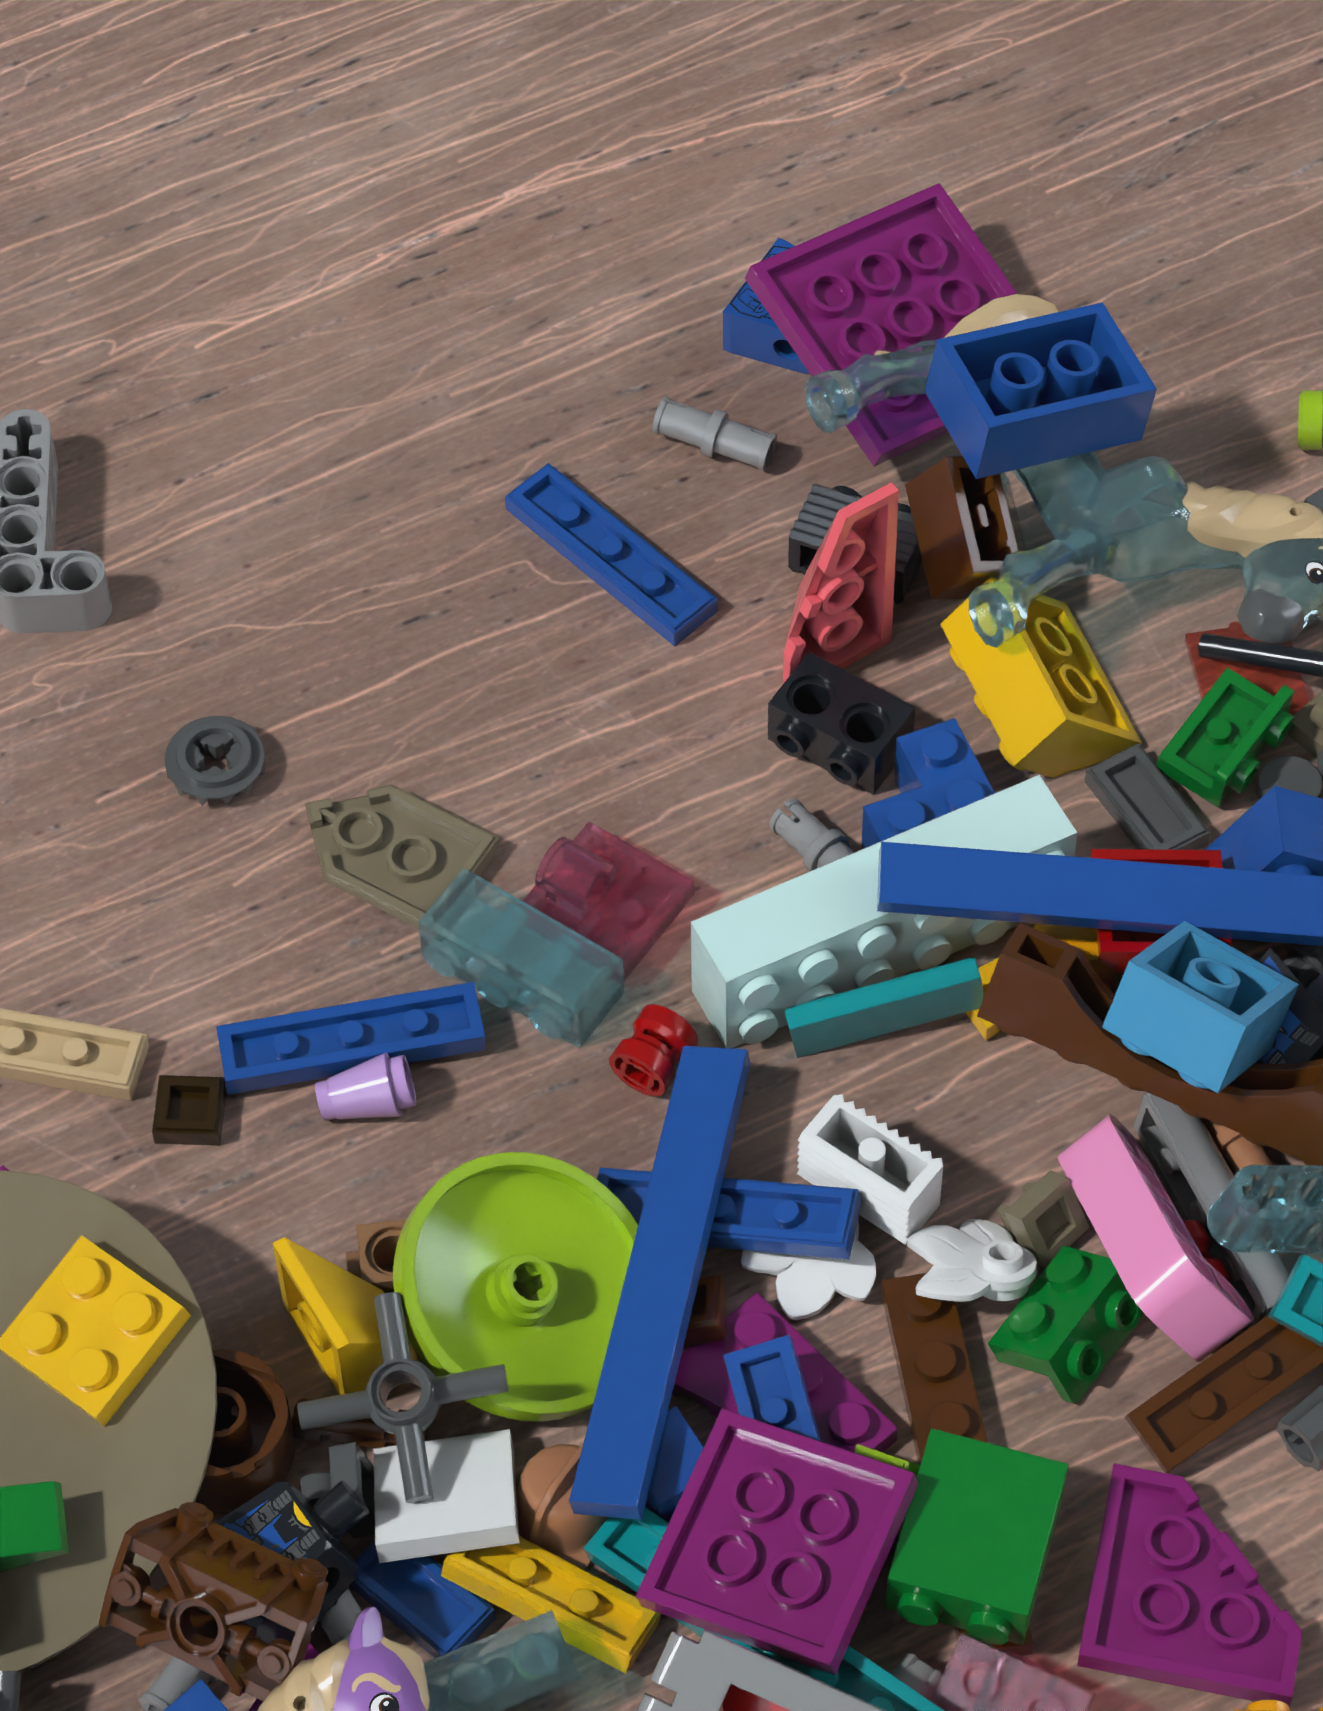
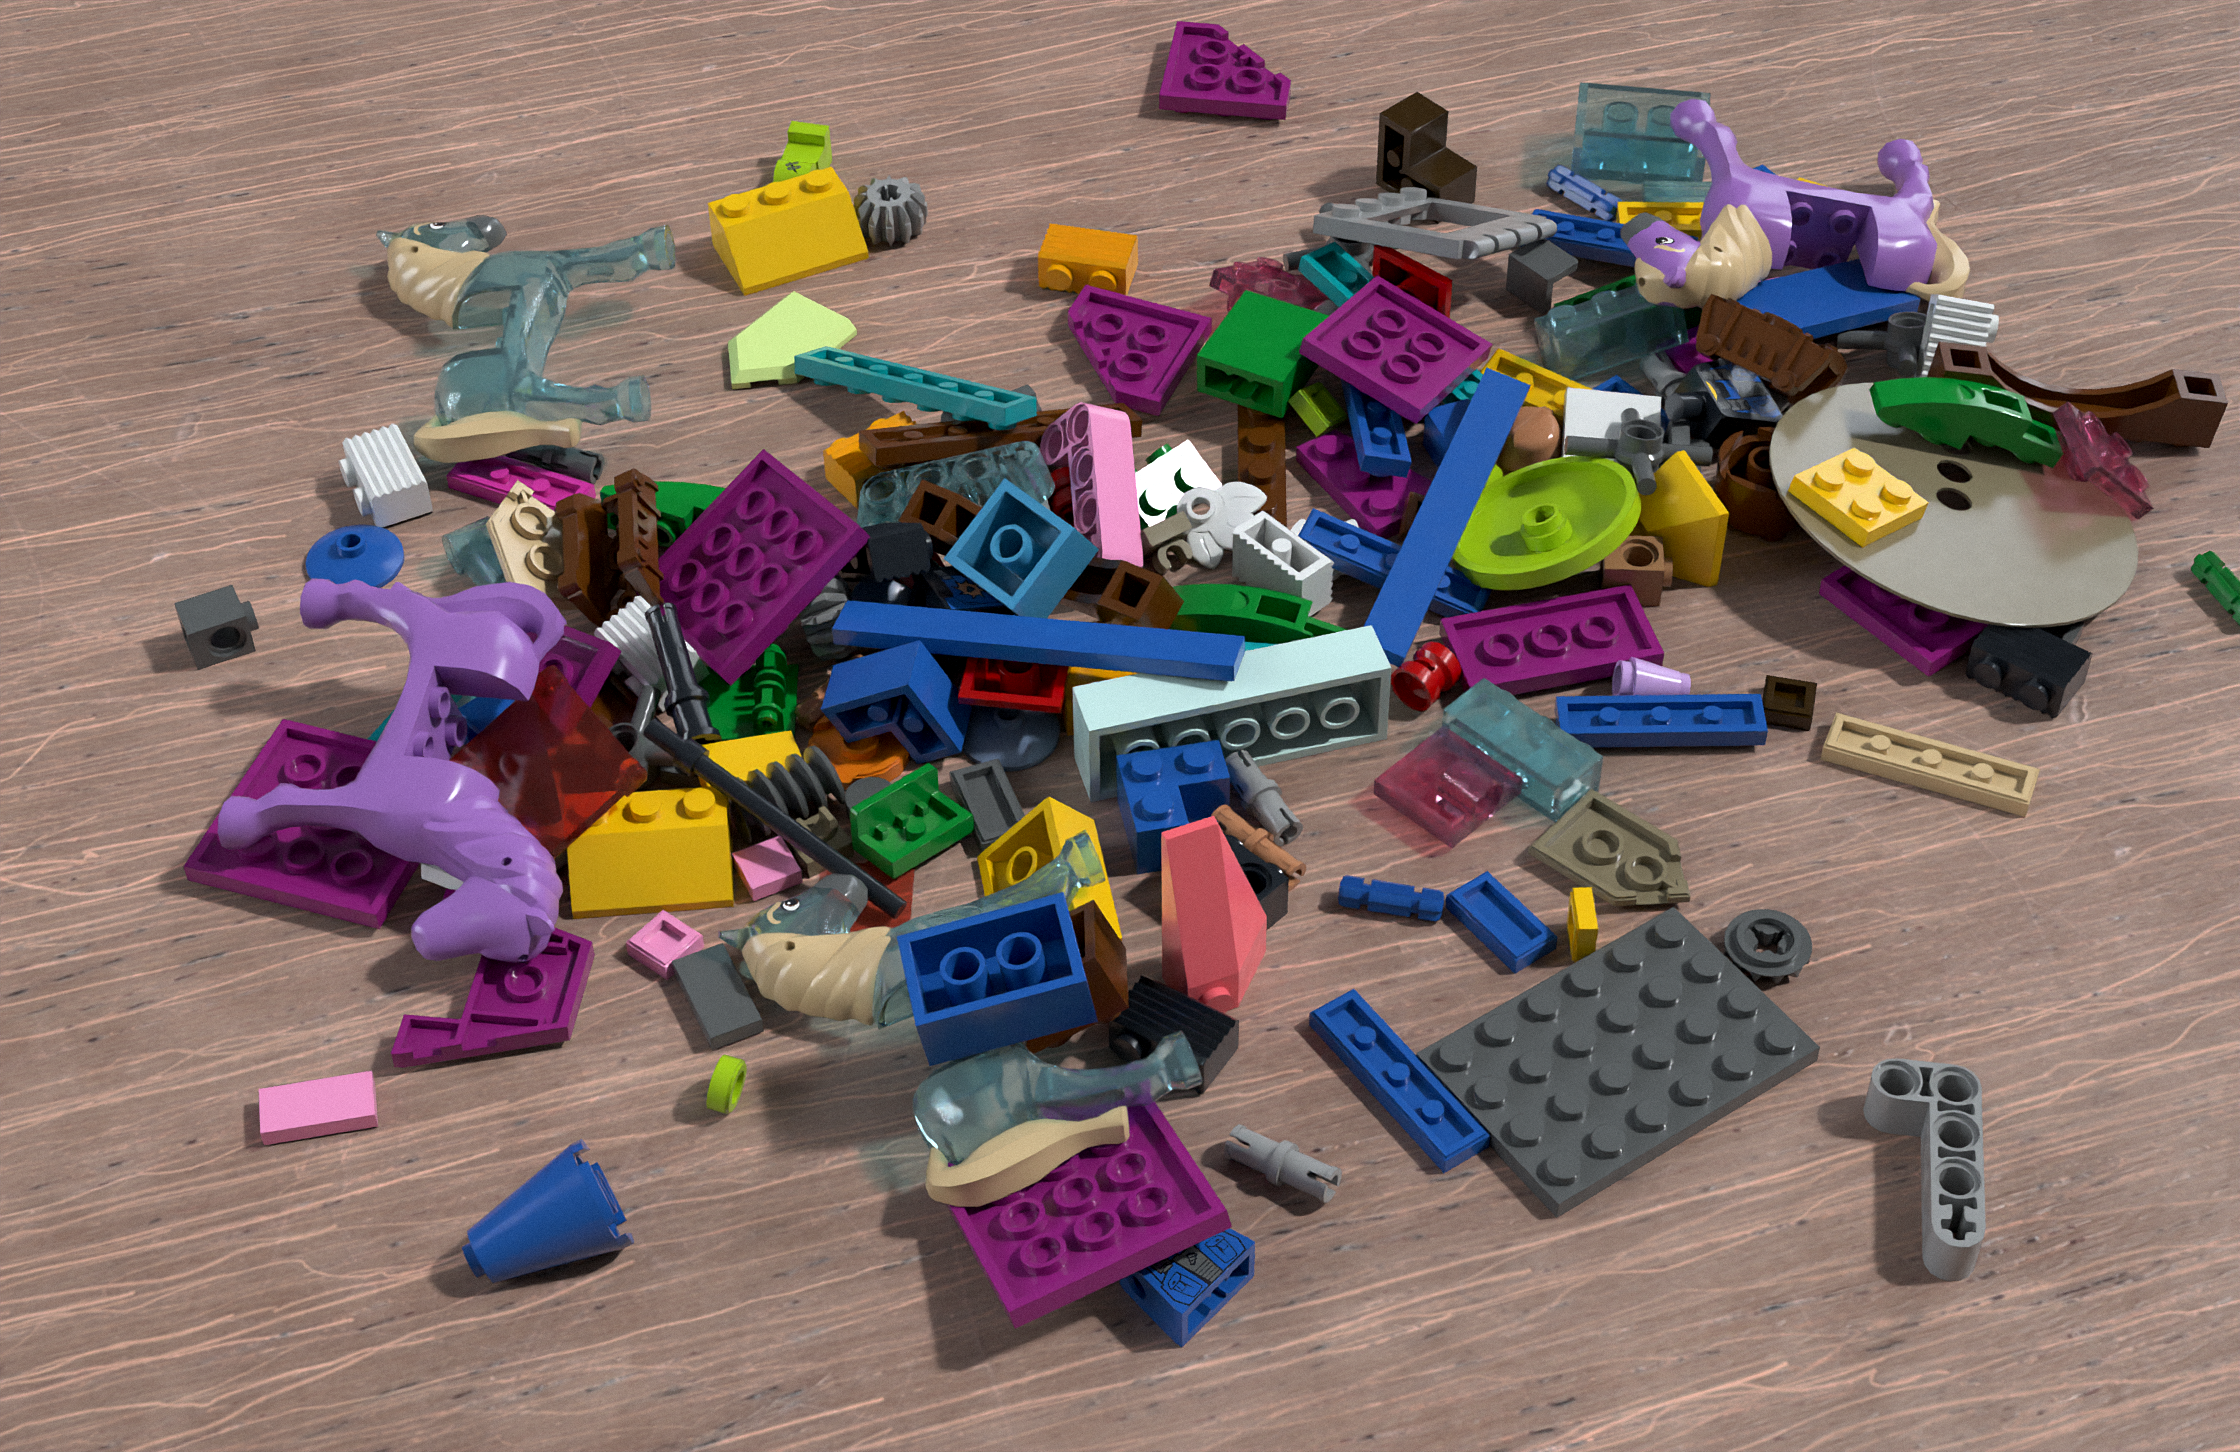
camera: 170 degrees left, 10 degrees down
(376, 613) = (1618, 1059): none -> dark grey plate
(427, 735) = (1581, 923): none -> yellow tile
(521, 752) = (1501, 922): none -> blue tile
(546, 1104) = (1551, 640): none -> magenta plate
(650, 754) = (1391, 898): none -> blue axle
(815, 782) = (1260, 843): none -> nougat pin
(894, 1072) = (1247, 612): none -> green slope

